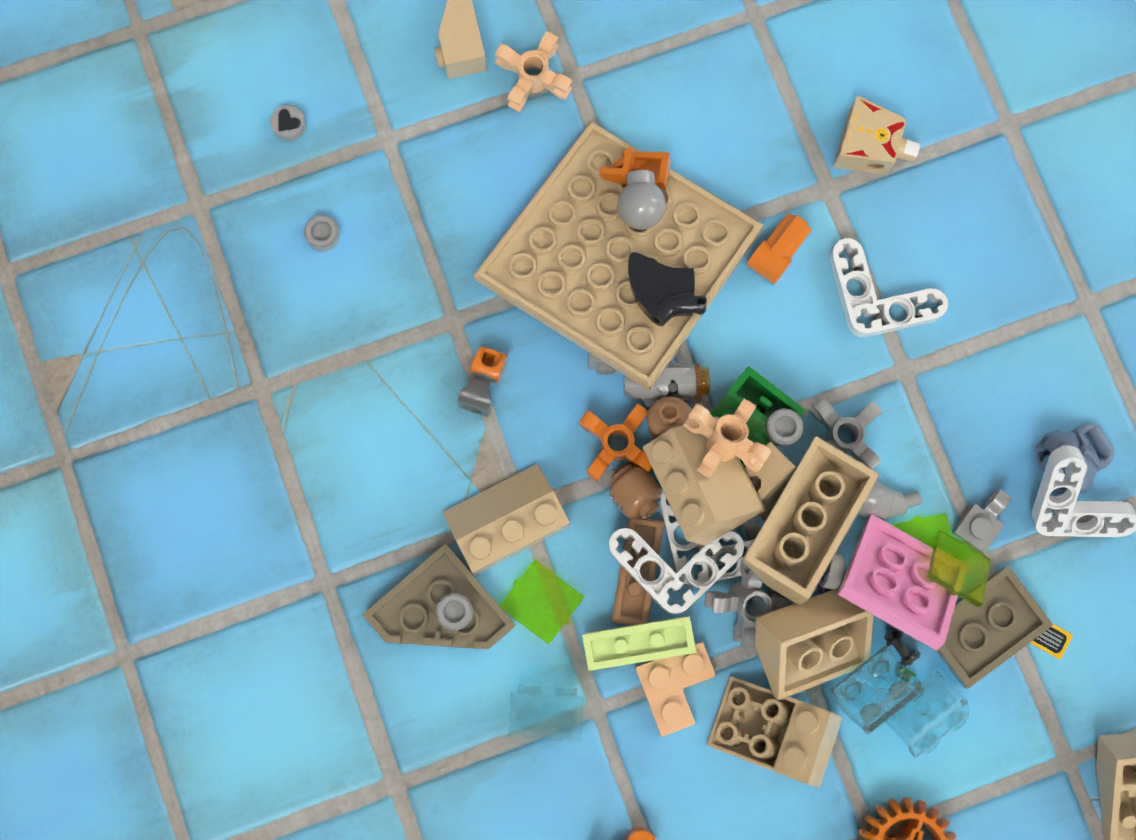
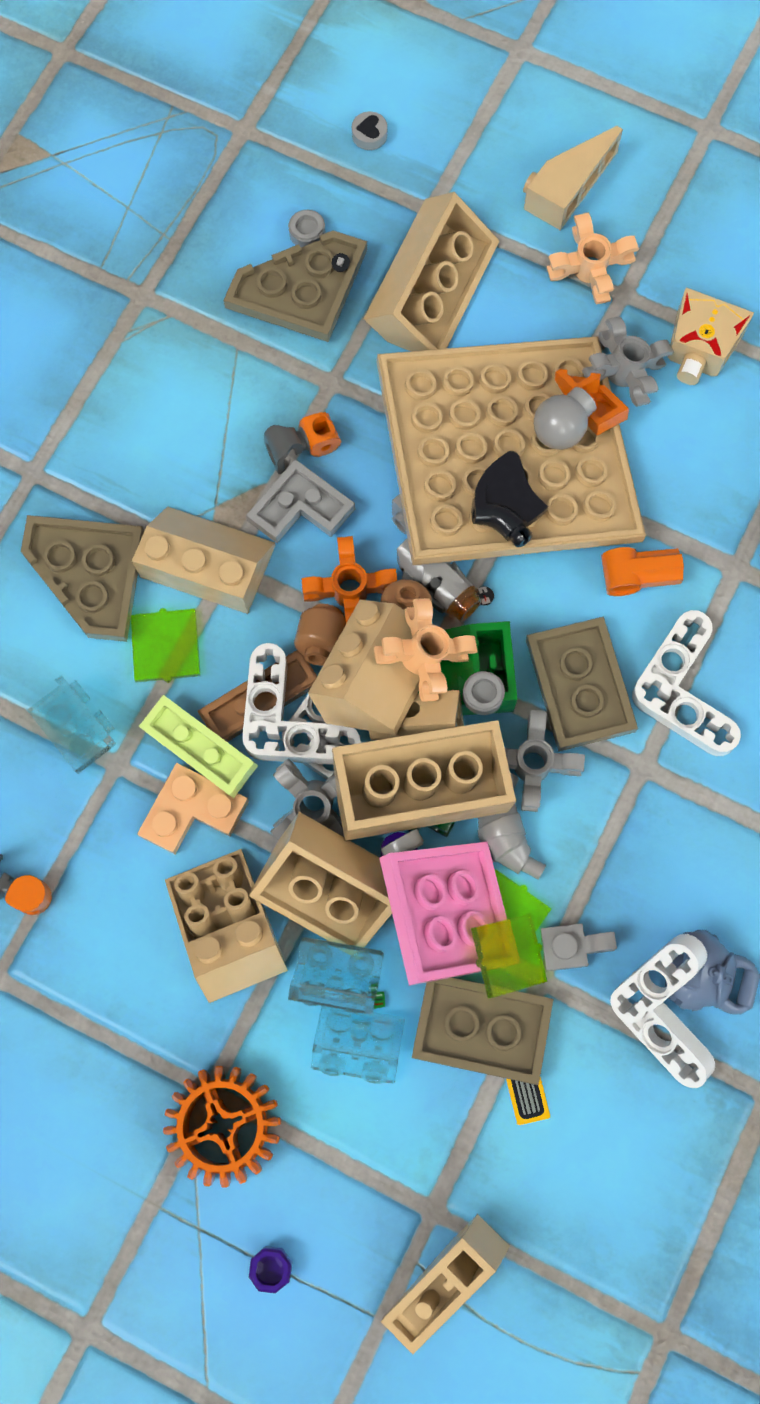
camera: 55 degrees right, 5 degrees down
(363, 276) = (299, 285): none -> dark tan plate
(377, 235) = (340, 262): none -> black piece
(444, 185) = (432, 276): none -> tan slope
(454, 611) = (91, 579): light grey tile -> none
(520, 415) = (297, 494): none -> light grey plate
(630, 120) = (628, 361): none -> light grey pin
(657, 55) = (705, 335): none -> tan torso
(702, 359) = (486, 594): none -> black piece
(820, 358) = (581, 684): none -> dark tan plate
(893, 637) = (390, 968): black piece -> none

